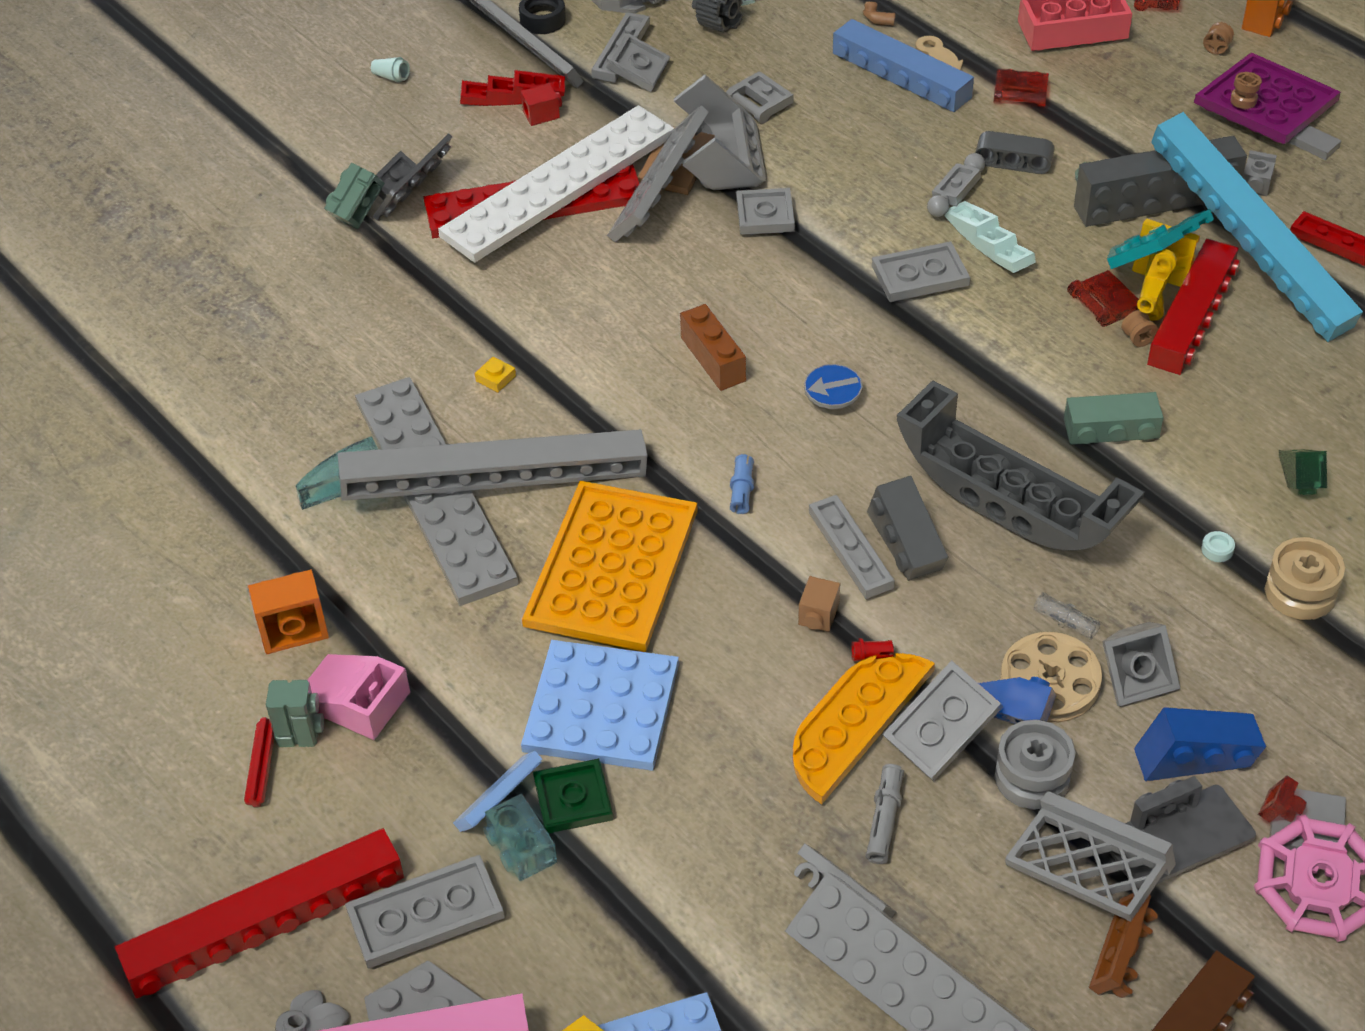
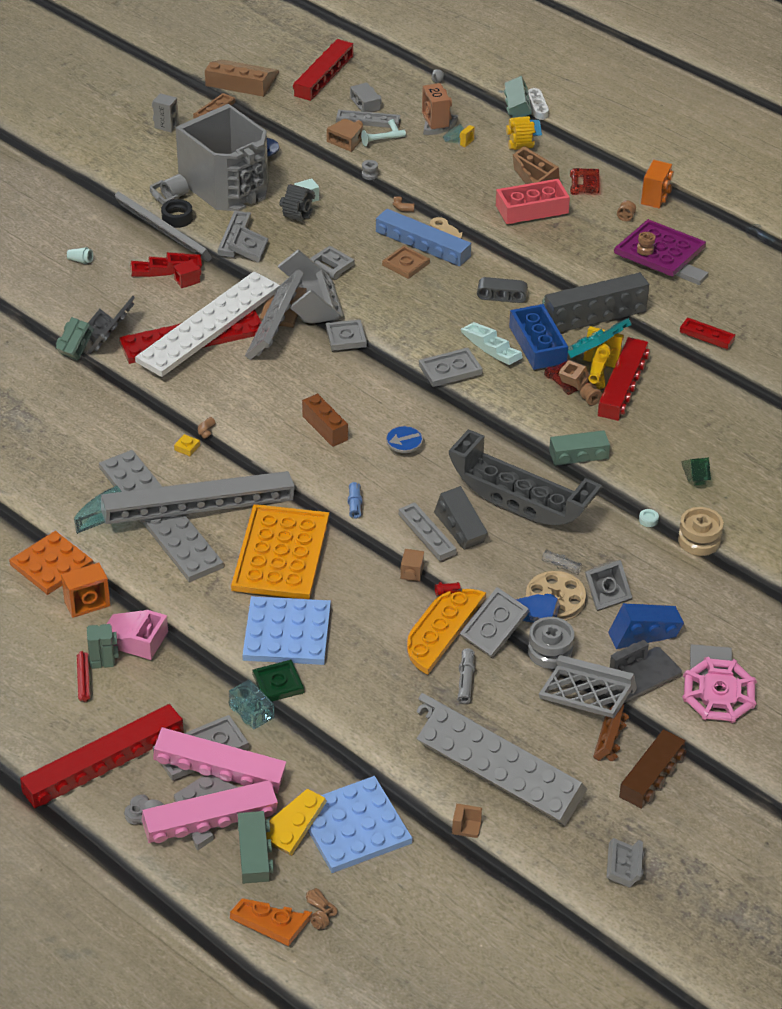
camera: 10 degrees left, 5 degrees down
(249, 552) = (49, 559): none -> orange plate
(446, 944) = (217, 759): none -> bright pink brick
(498, 791) = (233, 681): light blue tile -> none
(526, 345) = (204, 426): none -> medium nougat arm
(872, 101) = (406, 262): none -> medium nougat tile
(956, 185) = (467, 312): light grey plate -> none
(1021, 86) = (502, 248): clear red plate -> none
(1063, 230) = (538, 336): none -> blue brick
(1115, 296) = (574, 374): none -> medium nougat brick
(1256, 227) = (657, 327): medium azure brick -> none
(1259, 171) = (657, 295): light grey brick -> none
(1282, 801) = (695, 651): clear red tile -> none

